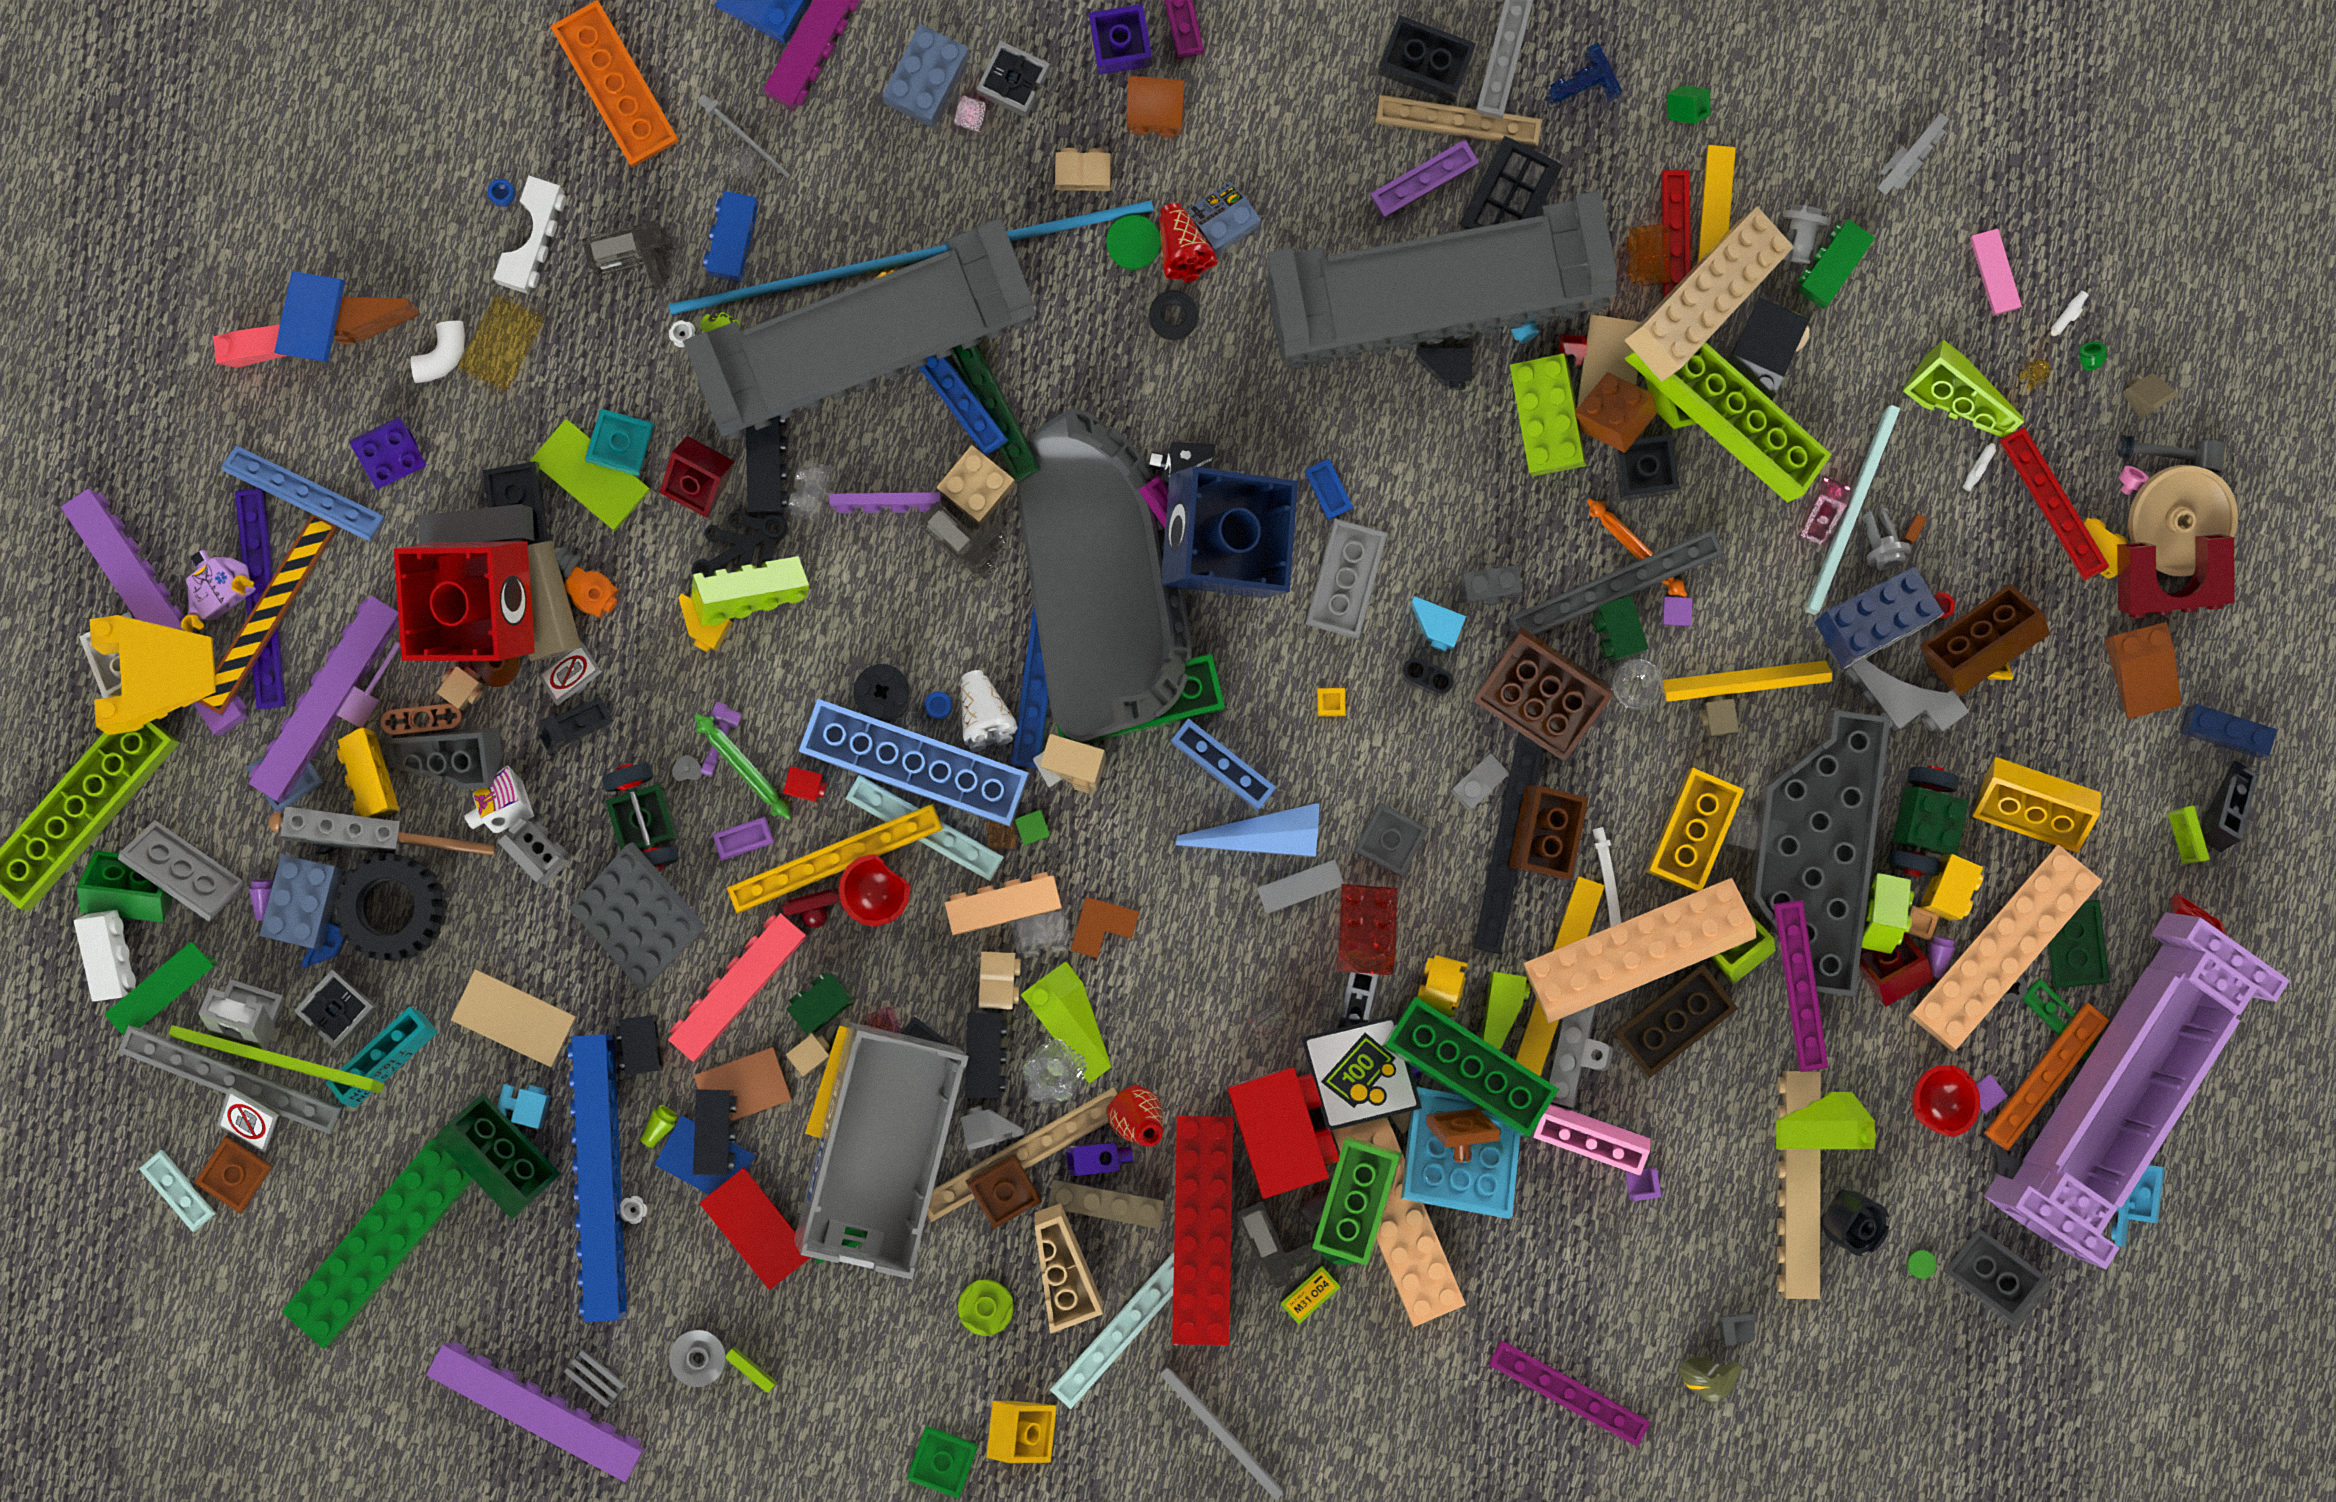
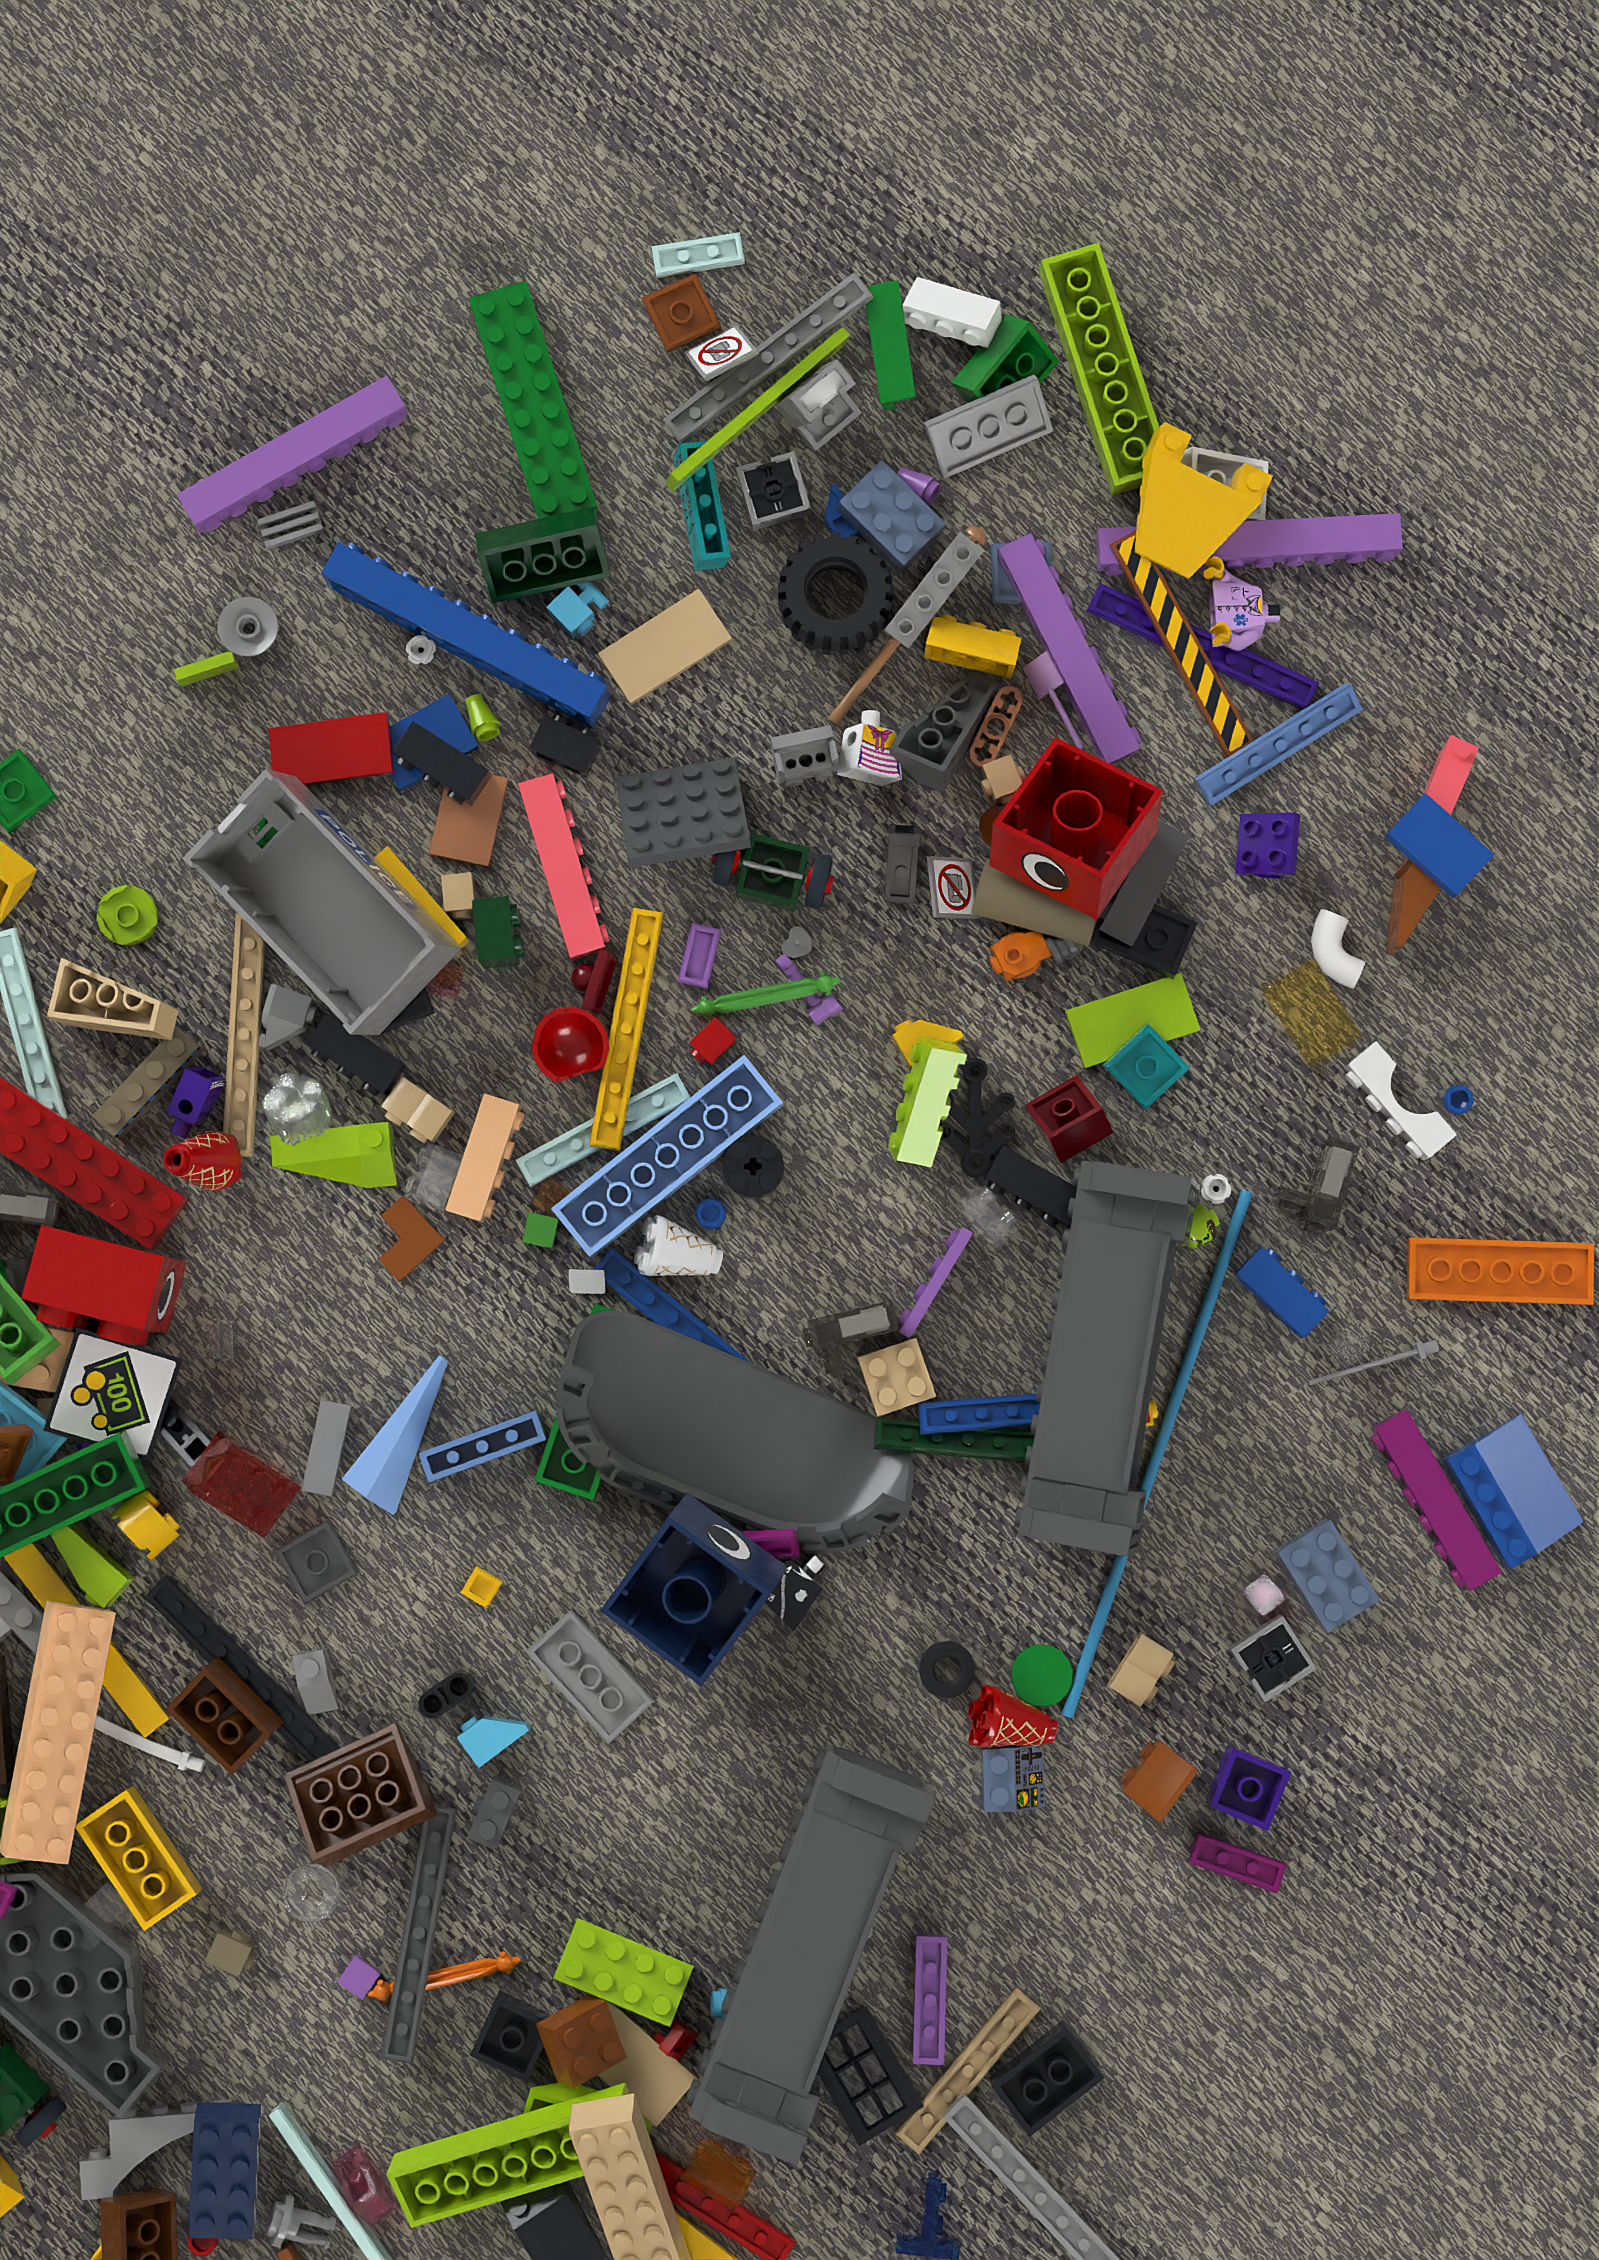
camera: 120 degrees right, 0 degrees up
(1003, 1191) = (221, 996): reddish brown tile -> none
(1074, 762) = (564, 1304): tan wedge -> none
(1328, 489) = (686, 1713): blue tile -> none
(1447, 365) = (732, 1905): black slope -> none
(1619, 630) = (372, 1908): dark green brick -> none
(1747, 680) = (249, 2002): yellow tile -> none

